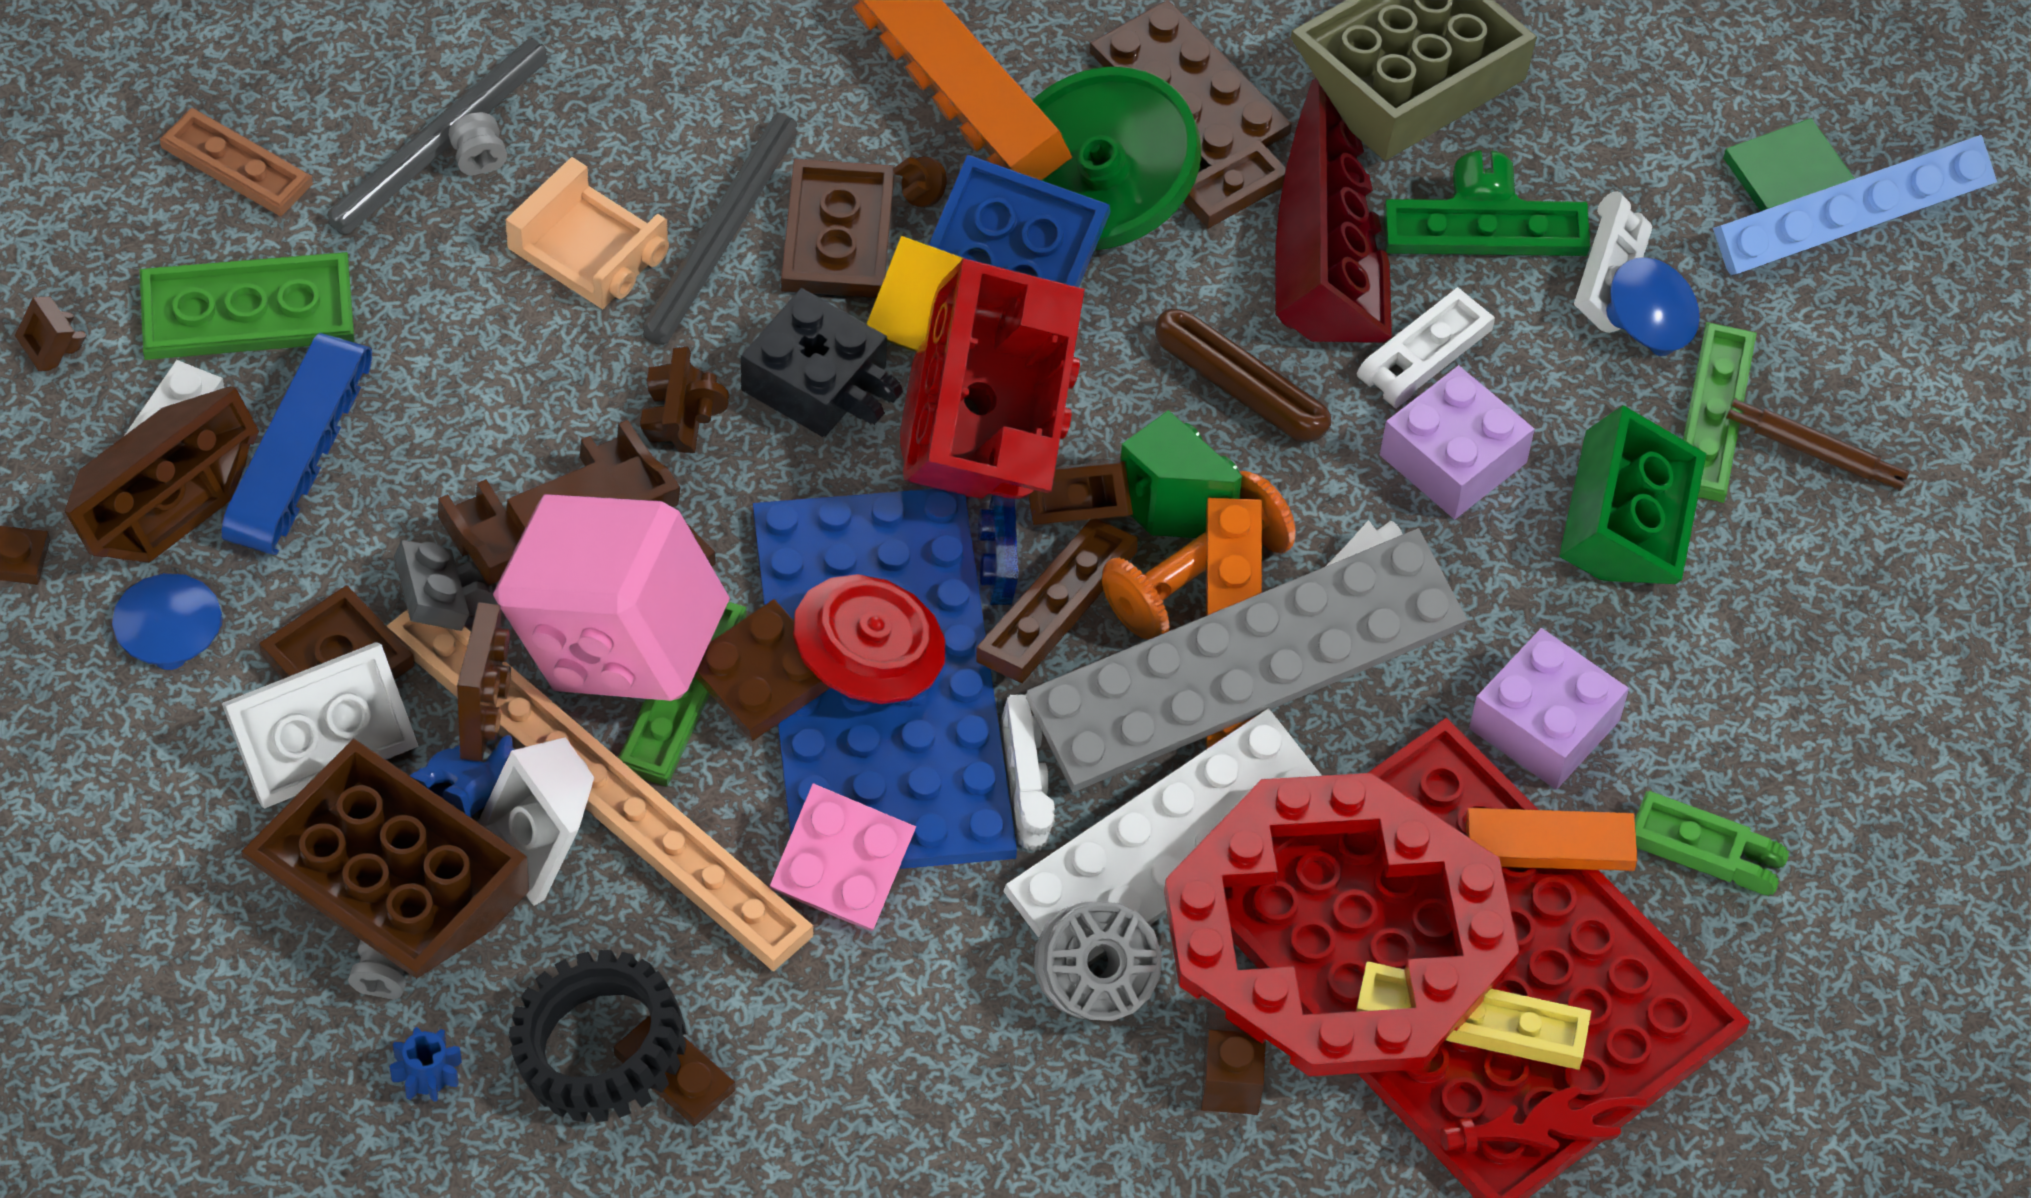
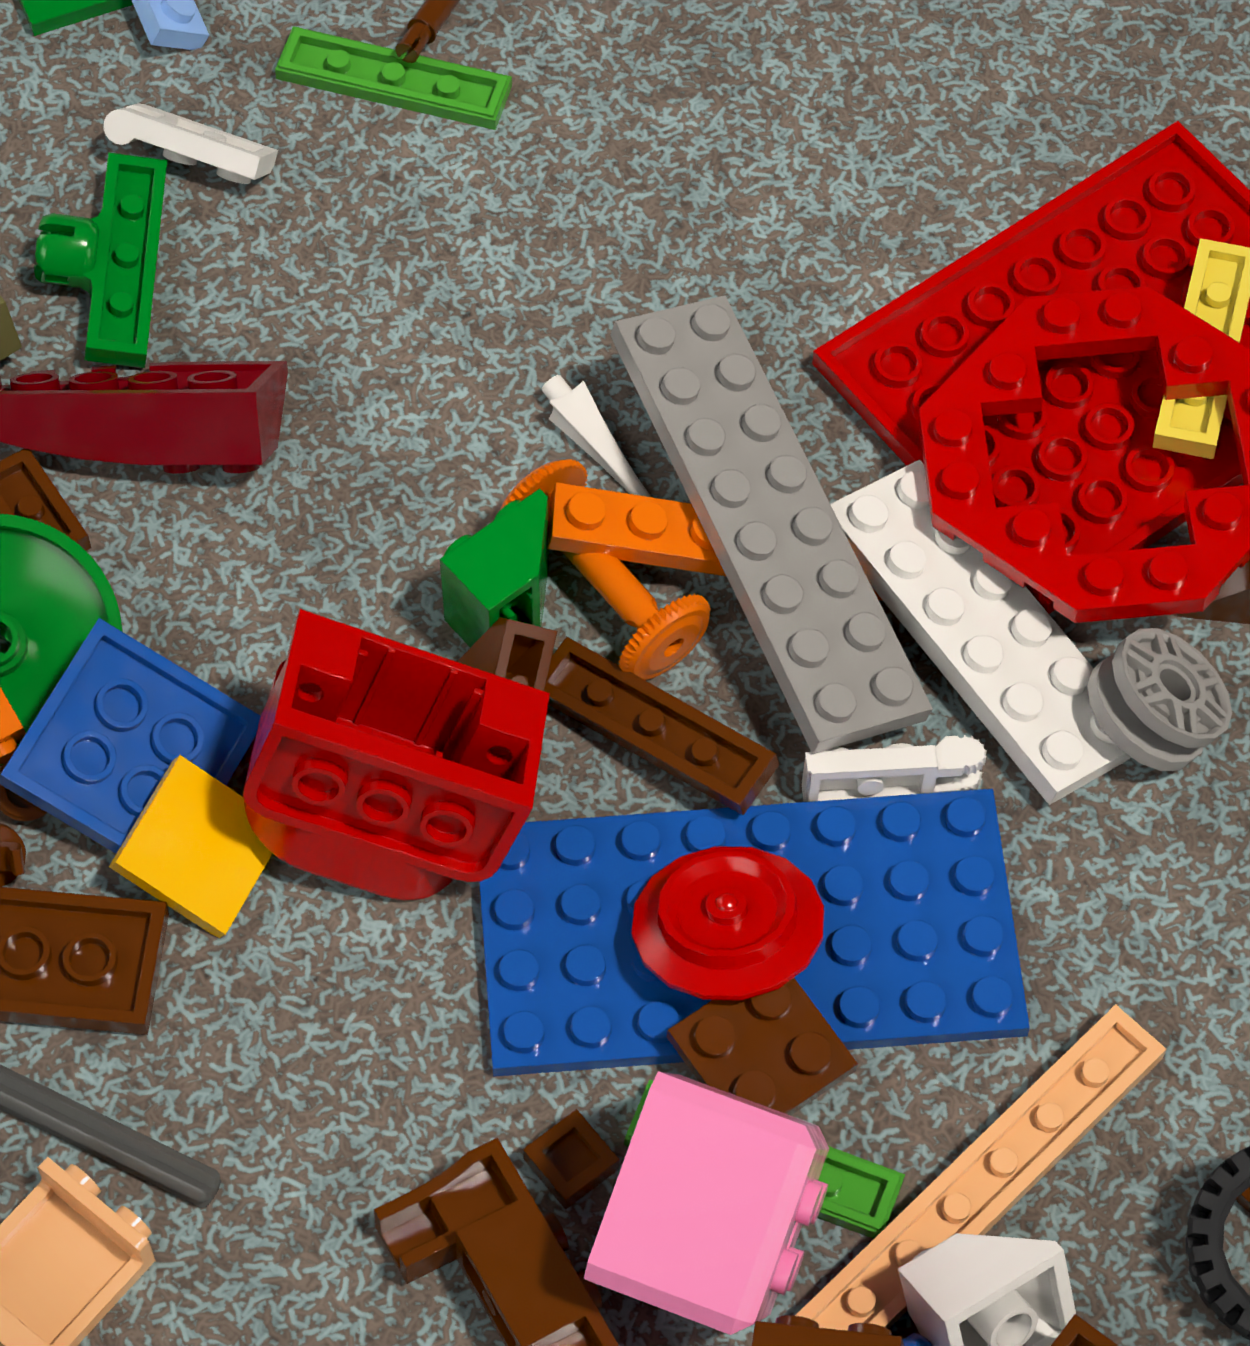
camera: 85 degrees left, 5 degrees up
(689, 400) = (298, 1153): reddish brown hips -> none
(818, 365) = (297, 945): black hinge -> none
(842, 857) = (1026, 968): bright pink plate -> none
(1000, 564) = (586, 784): clear blue plate -> none
(1242, 375) = (324, 521): reddish brown piece -> none
(1426, 346) = (293, 332): white plate -> none
(1456, 442) = (441, 308): lavender brick -> none
(1548, 708) = (802, 254): lavender brick -> none
(1556, 838) = (976, 261): orange tile -> none
(1633, 501) = (529, 155): green slope -> none
(1653, 305) = (254, 110): blue dish -> none
(1707, 843) = (954, 145): bright green hinge -> none

